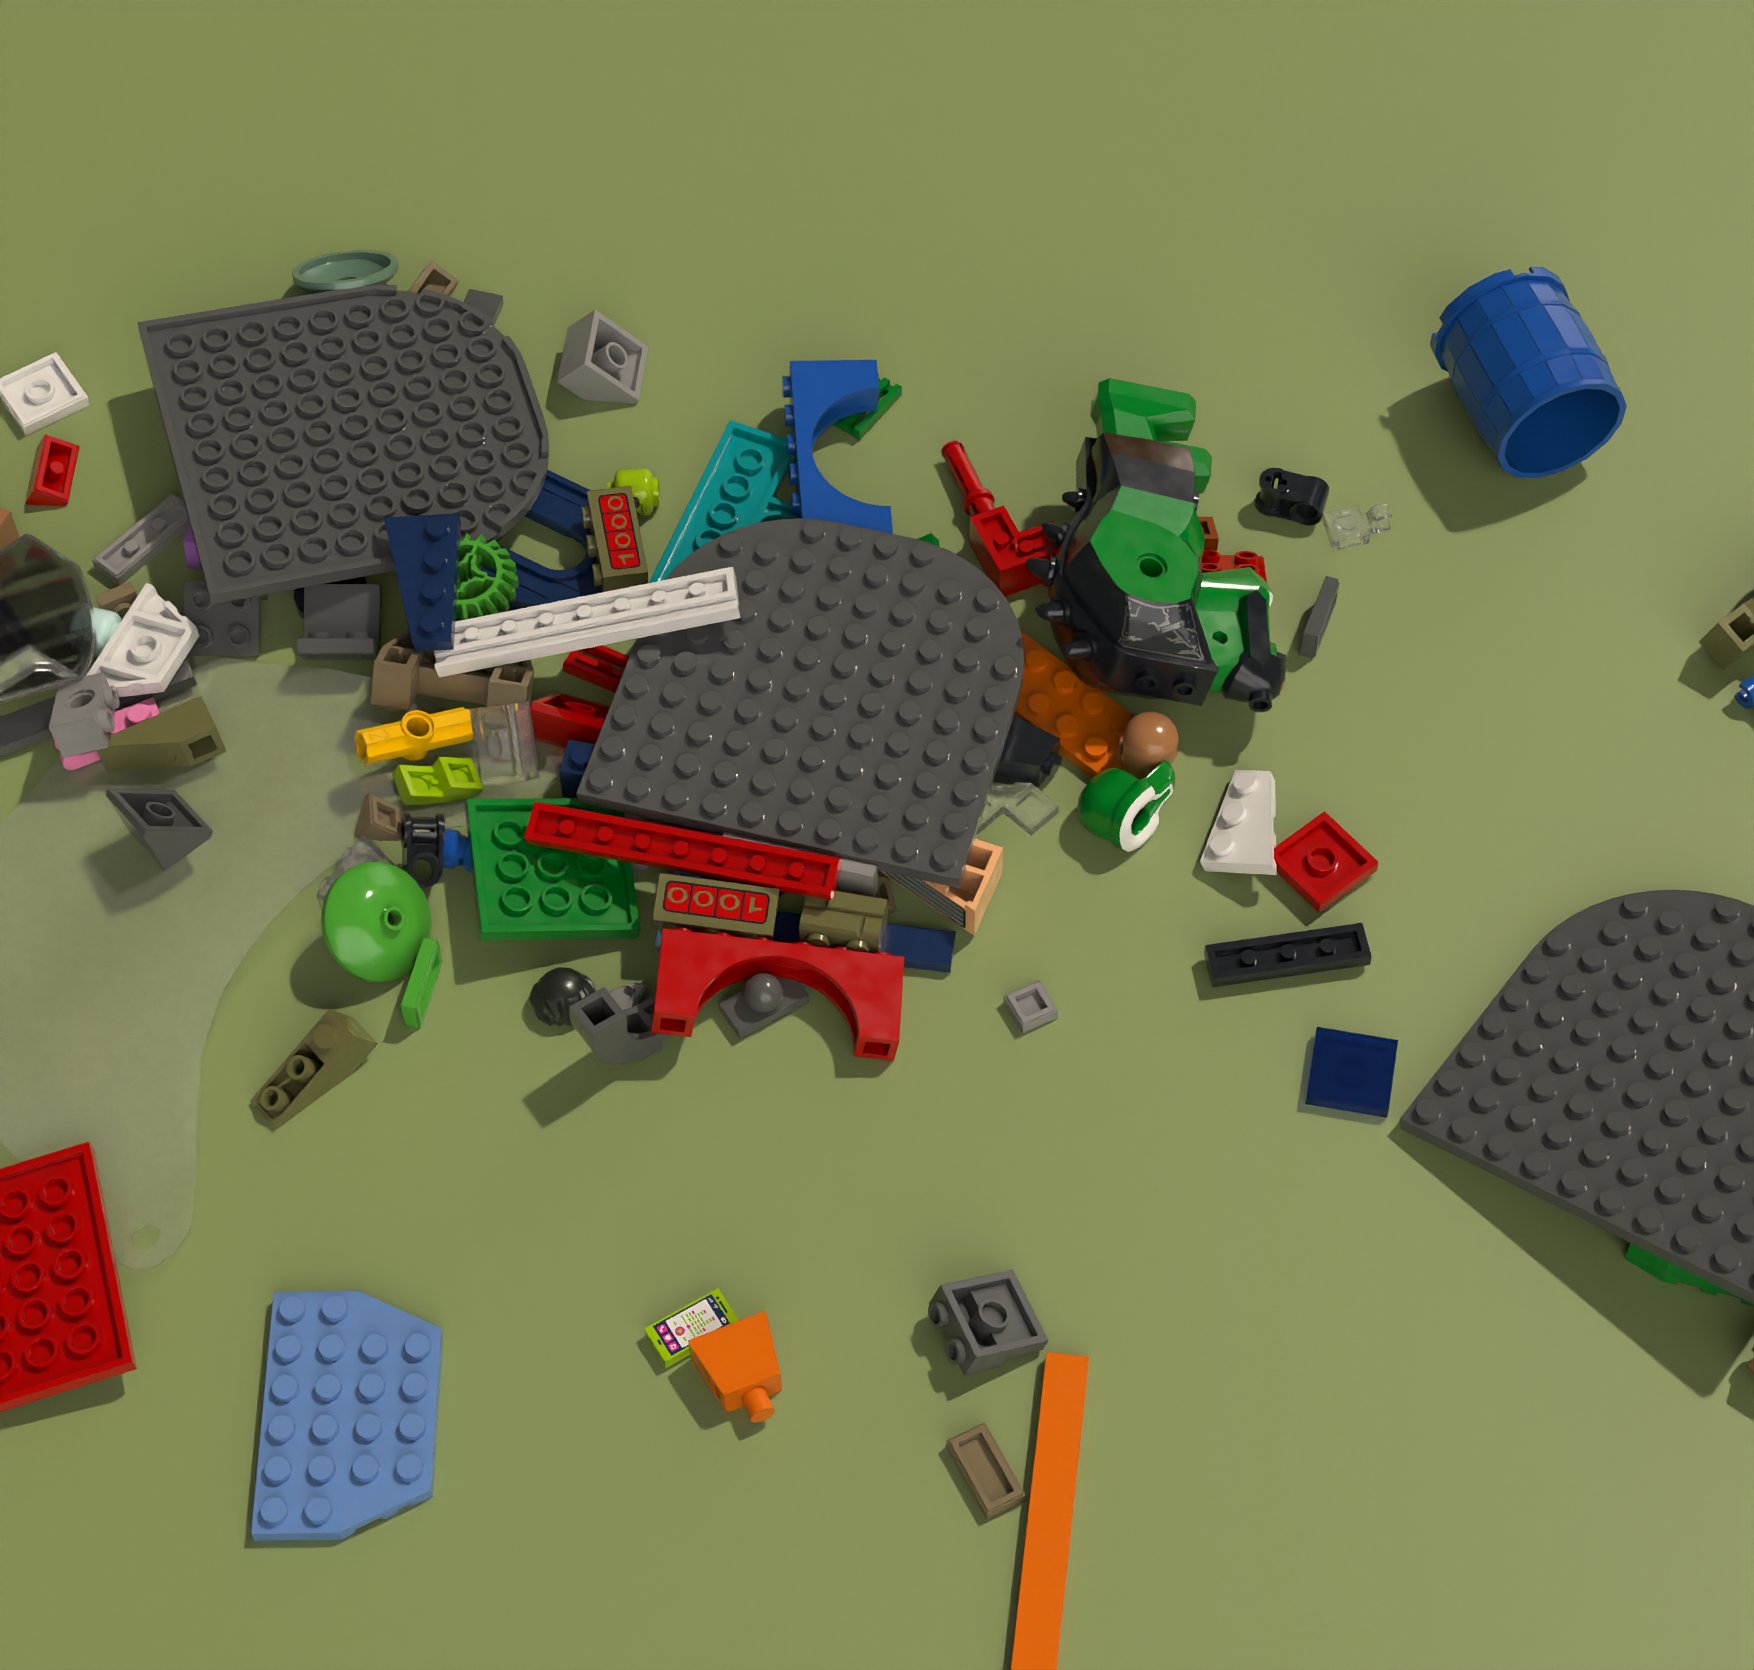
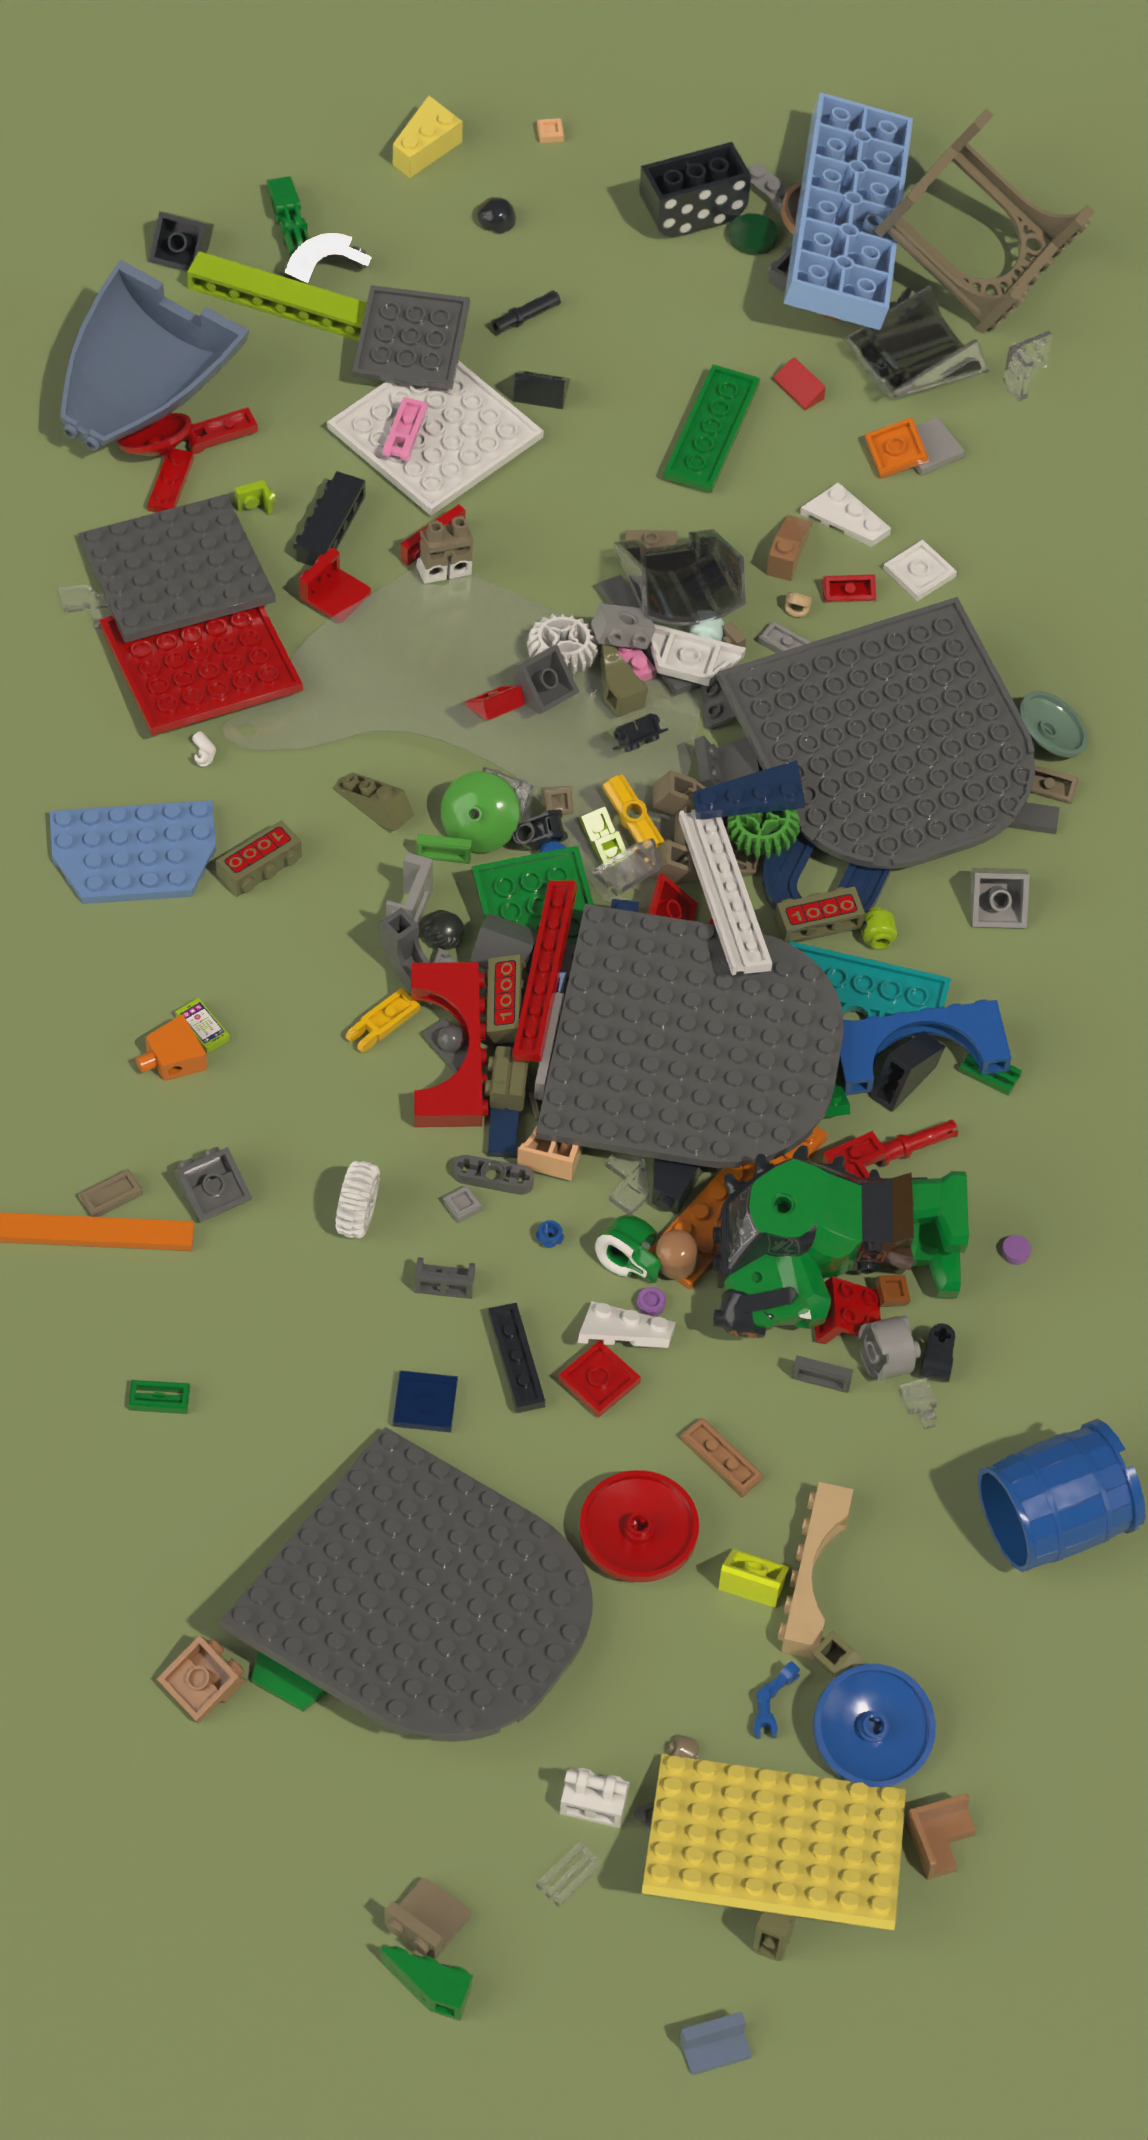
camera: 80 degrees right, 0 degrees up
(65, 524) = (798, 599): none -> tan tile
(74, 806) = (572, 636): none -> white gear
(170, 1298) = (207, 749): none -> white arm
(183, 883) = (497, 701): none -> red slope
(280, 712) = (630, 737): none -> black hinge
(401, 1229) = (259, 858): none -> olive brick
(480, 1016) = (416, 883): none -> light grey panel
(615, 909) = (503, 938): none -> dark grey slope
(711, 1080) = (383, 1019): none -> yellow hinge
(866, 476) = (906, 1069): none -> black slope
(989, 980) = (500, 1184): none -> dark grey beam
(1037, 1121) = (357, 1199): none -> white gear
(1089, 894) = (553, 1228): none -> blue plate
(1155, 1031) = (444, 1280): none -> dark grey hinge
(1198, 797) = (651, 1301): none -> medium lavender tile
(1292, 538) = (888, 1348): none -> light grey brick
(1338, 1448) = (159, 1401): none -> green tile
(1434, 740) = (721, 1457): none -> medium nougat tile
(1555, 828) = (639, 1526): none -> red dish
(1613, 716) = (753, 1577): none -> neon yellow slope
(1677, 670) = (805, 1621): none -> tan arch

